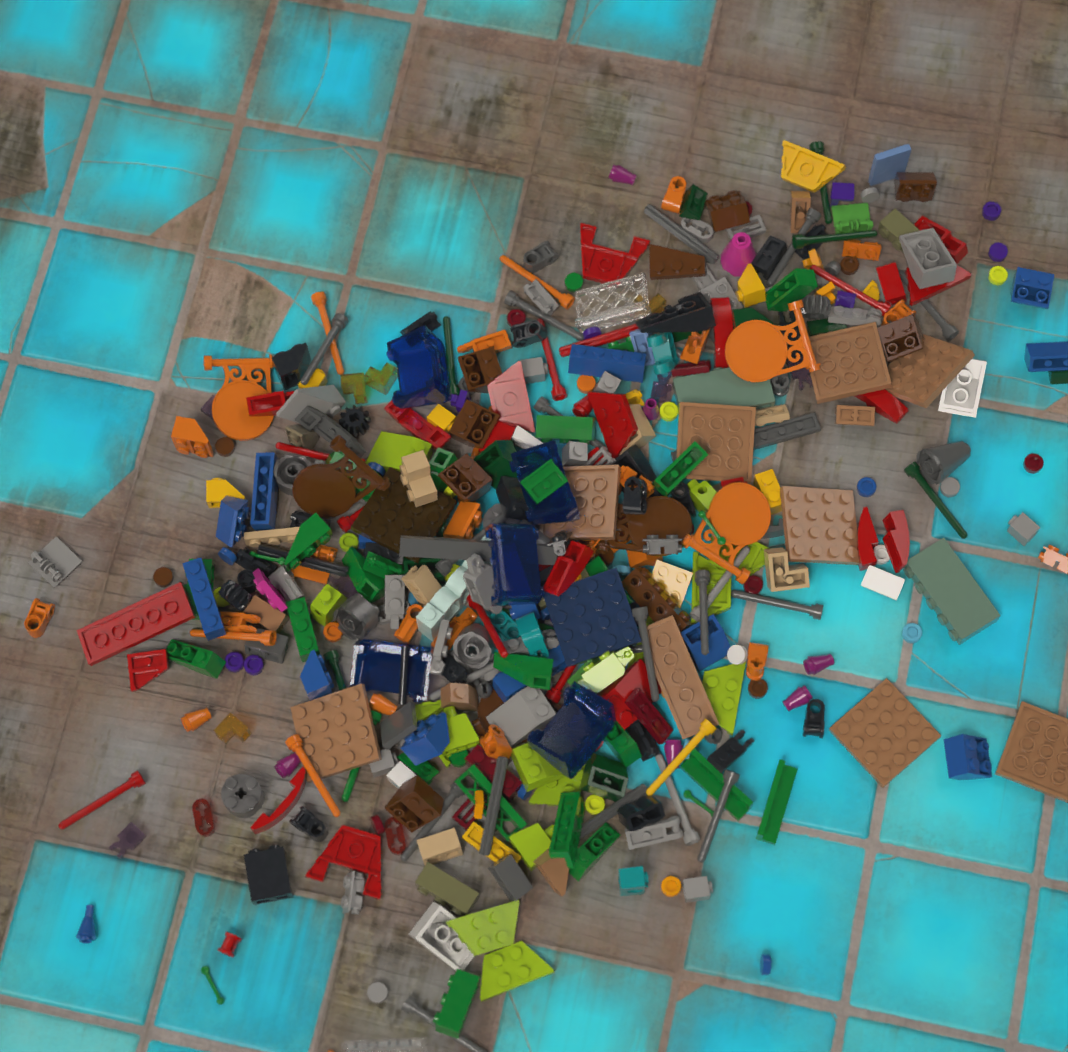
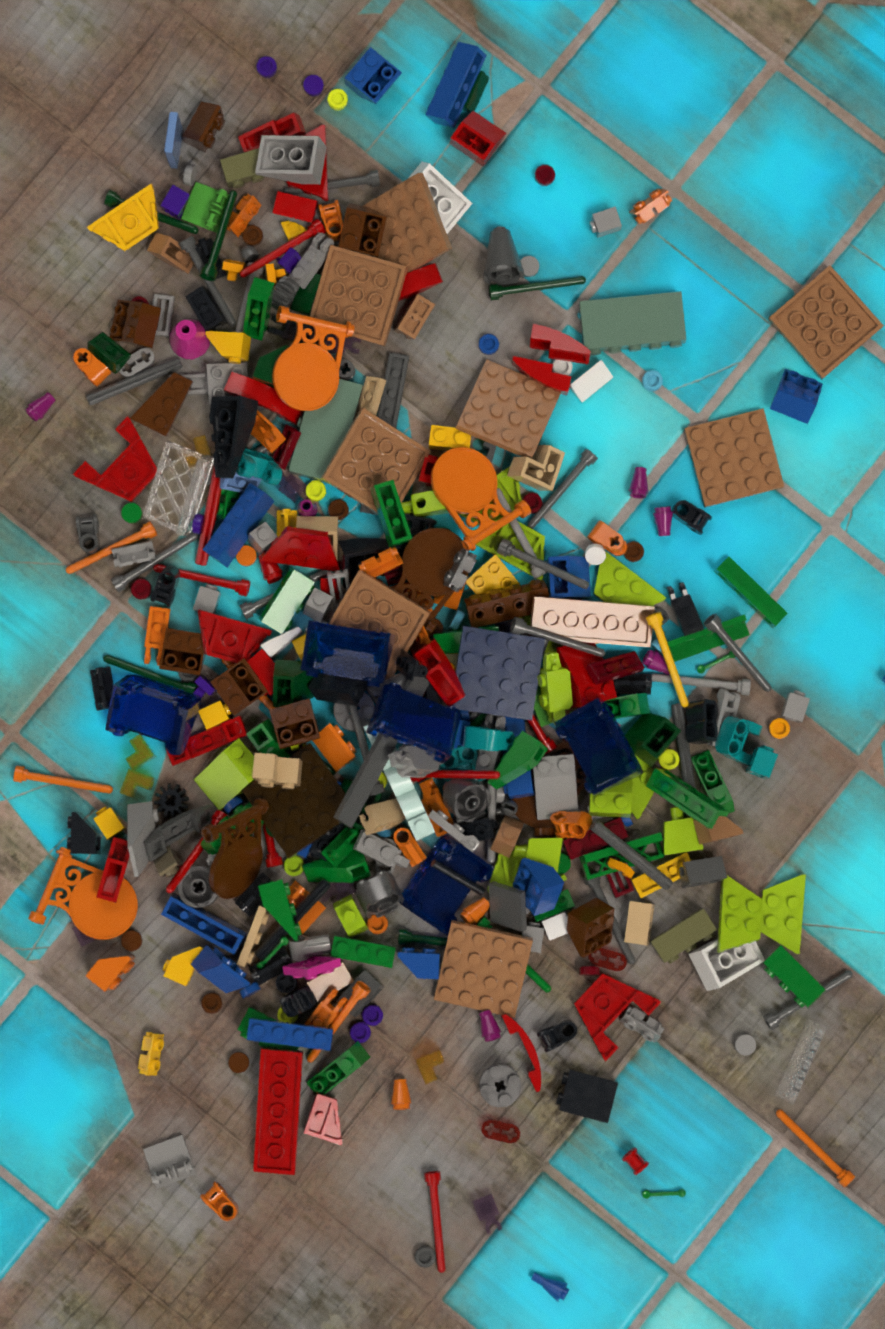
camera: 70 degrees left, 15 degrees up
(66, 807) = (425, 1256): none -> dark grey tile
(132, 507) = (150, 1063): none -> yellow hinge
(203, 533) = (212, 1003): none -> reddish brown tile
(295, 744) = (475, 1012): orange piece -> none
(338, 322) = (57, 767): dark grey piece -> none
(544, 481) = (344, 651): green plate -> none
(635, 498) = (401, 572): black piece -> none
(643, 849) = (733, 737): none -> teal piece
(663, 436) = (339, 509): none -> reddish brown tile
(721, 540) = (483, 512): green hinge -> none
(1031, 393) = (477, 138): none -> red slope

